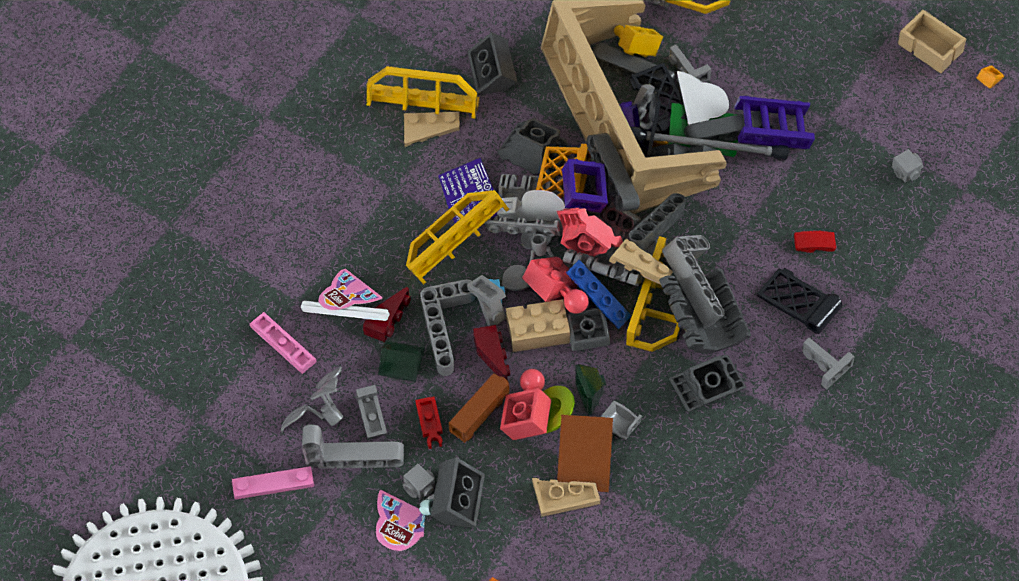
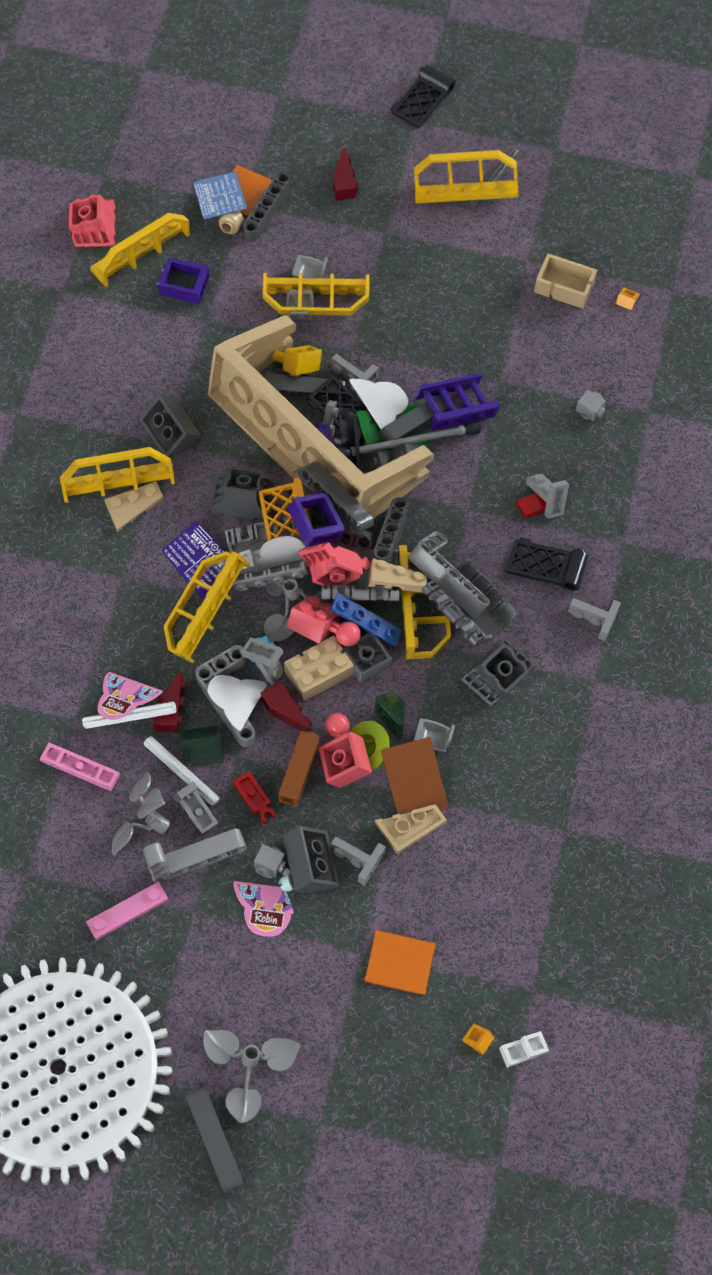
camera: 25 degrees left, 5 degrees up
(373, 376) = (180, 770): none -> white axle
(448, 325) = (235, 697): none -> white sticker
(508, 514) = (359, 858): none -> light grey bracket
(830, 234) = (552, 493): none -> light grey bracket

